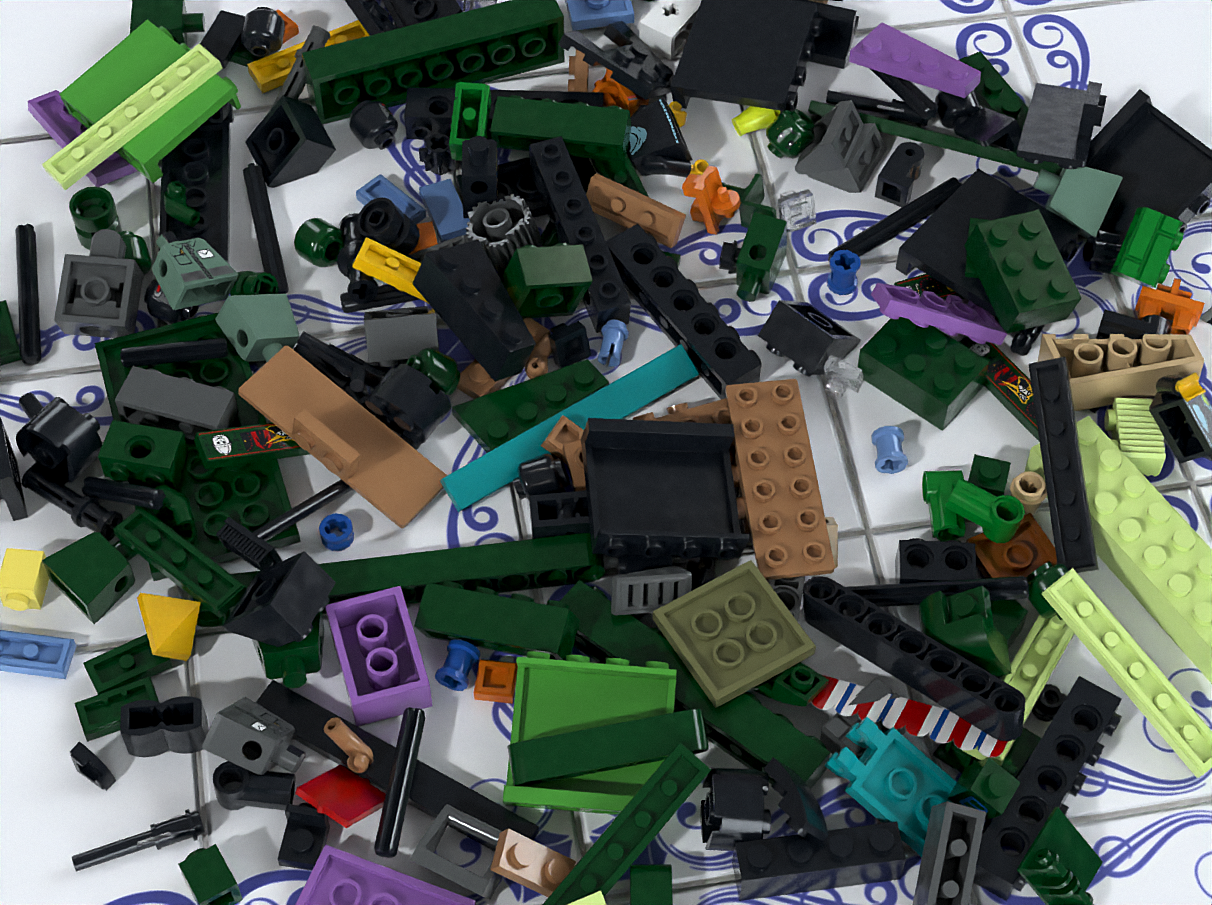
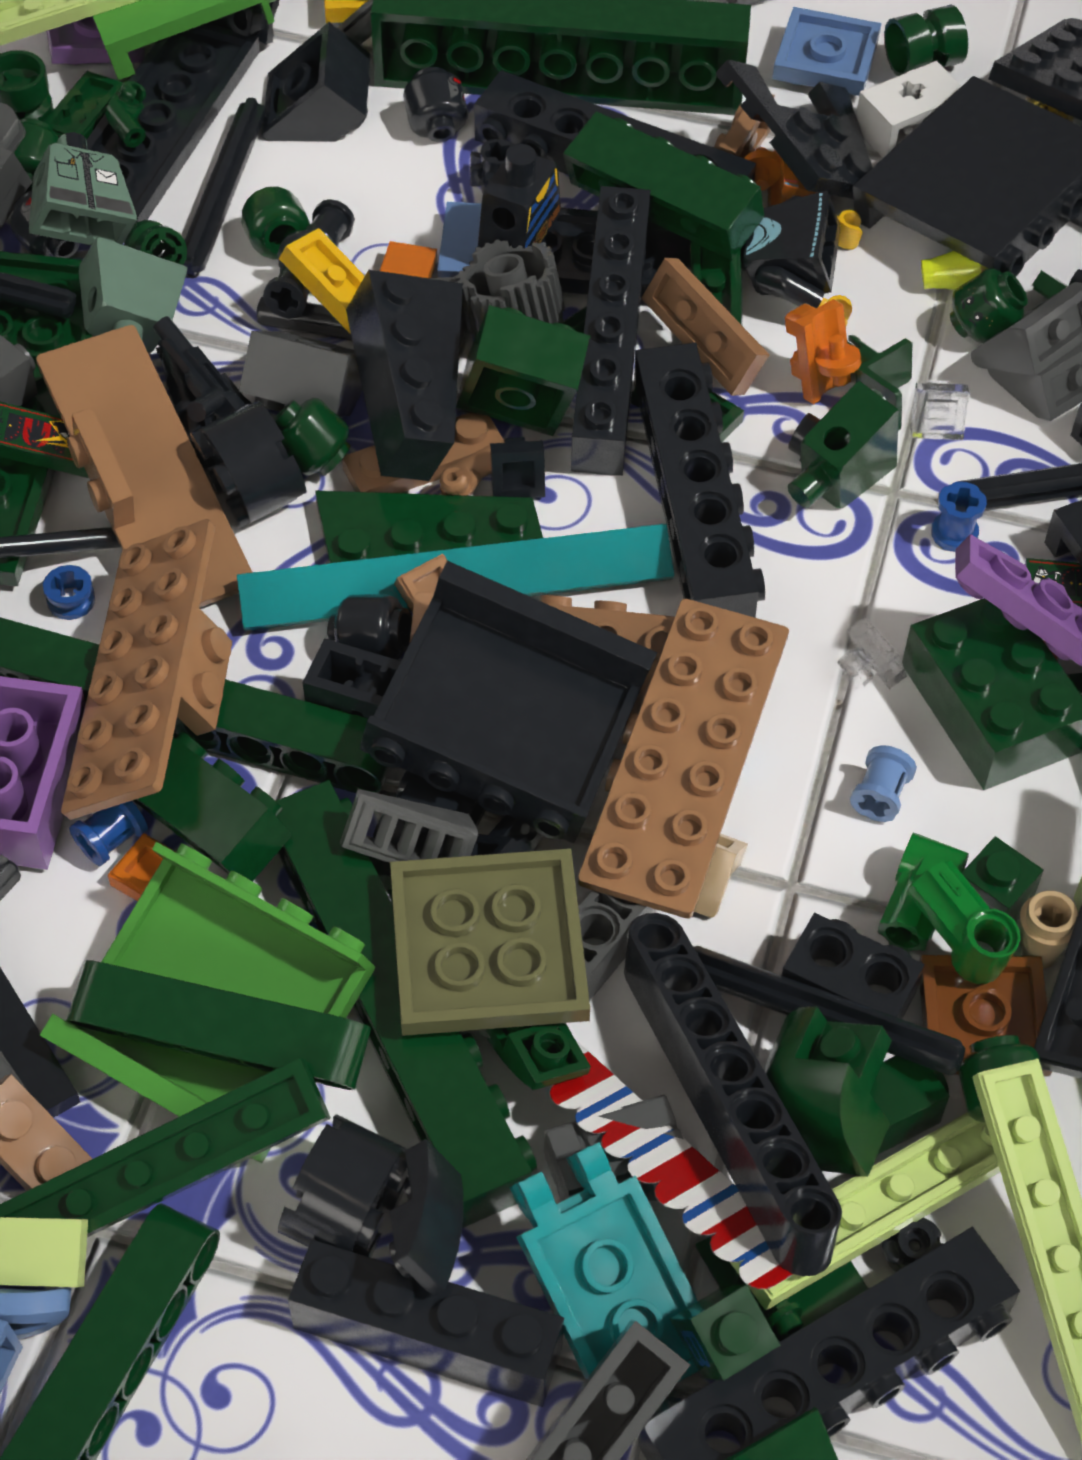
camera: 25 degrees right, 0 degrees up
(142, 210) = (83, 105): none -> dark green plate
(382, 188) = (401, 208): medium blue tile -> none
(387, 225) = (365, 231): black wheel -> none
(435, 558) = (151, 666): none -> medium nougat bracket
(469, 115) = (551, 119): green brick -> none
(614, 335) = (587, 481): medium blue pin -> none
(806, 336) = (851, 576): black slope -> none

